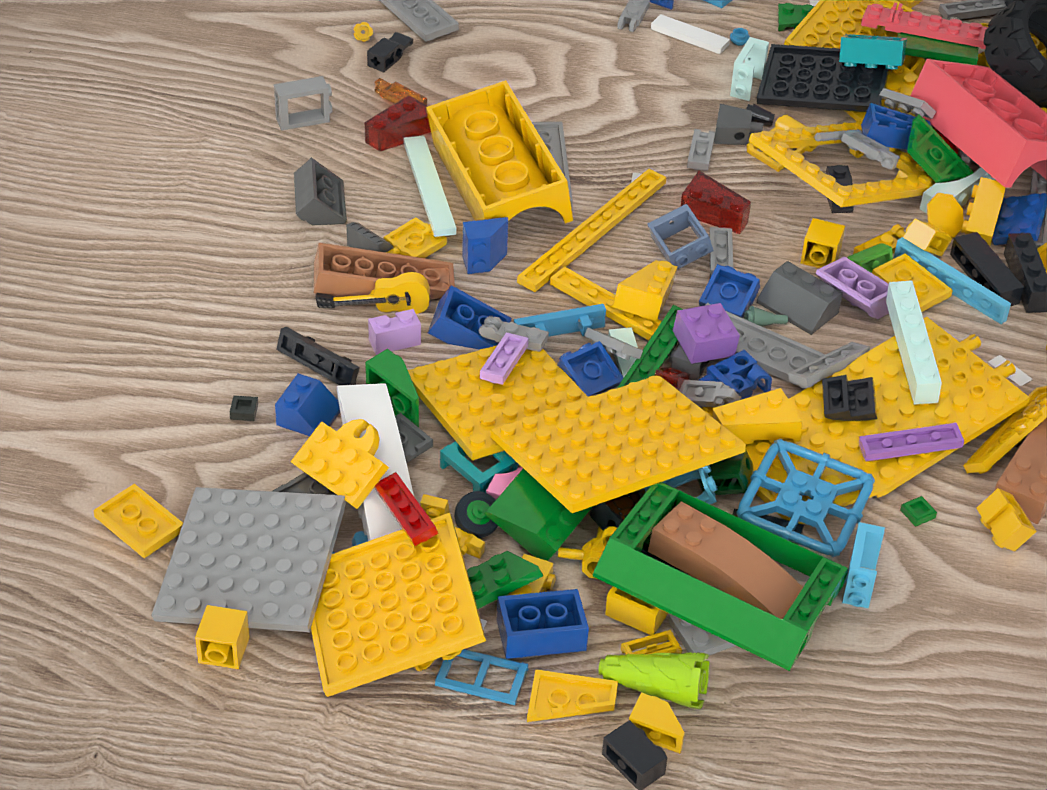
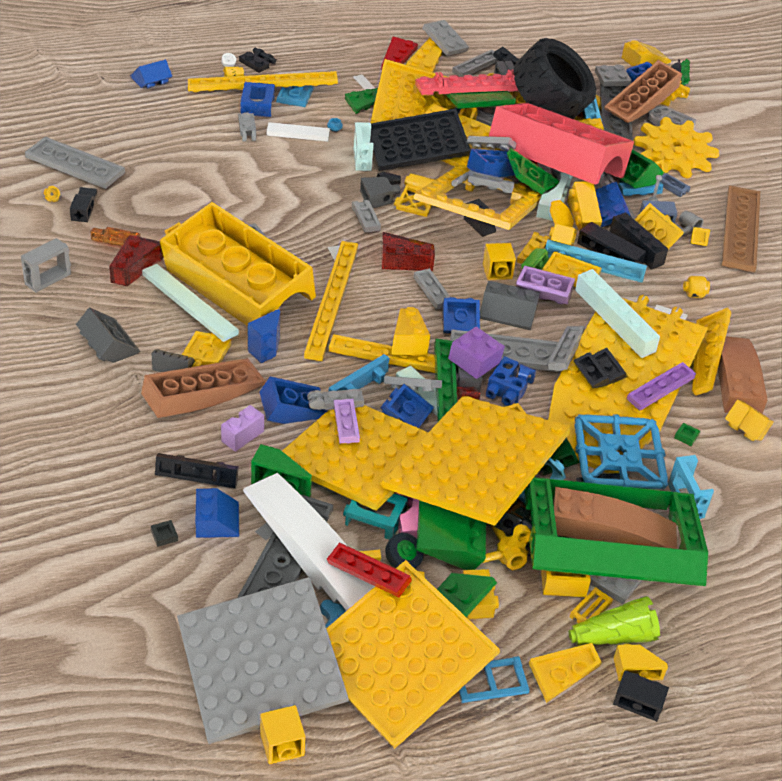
camera: 30 degrees left, 0 degrees up
(139, 520) = (142, 662): yellow plate -> none
(343, 459) = (288, 548): yellow plate -> none
(390, 294) = (230, 395): yellow piece -> none
(542, 623) = (514, 619): blue brick -> none
(681, 219) = (391, 274): sand blue window -> none
(708, 393) = (506, 396): light grey hinge -> none
(761, 418) = (557, 401): yellow wedge -> none
(764, 317) = (494, 327): sand green cone -> none
(872, 51) = (446, 110): teal slope -> none

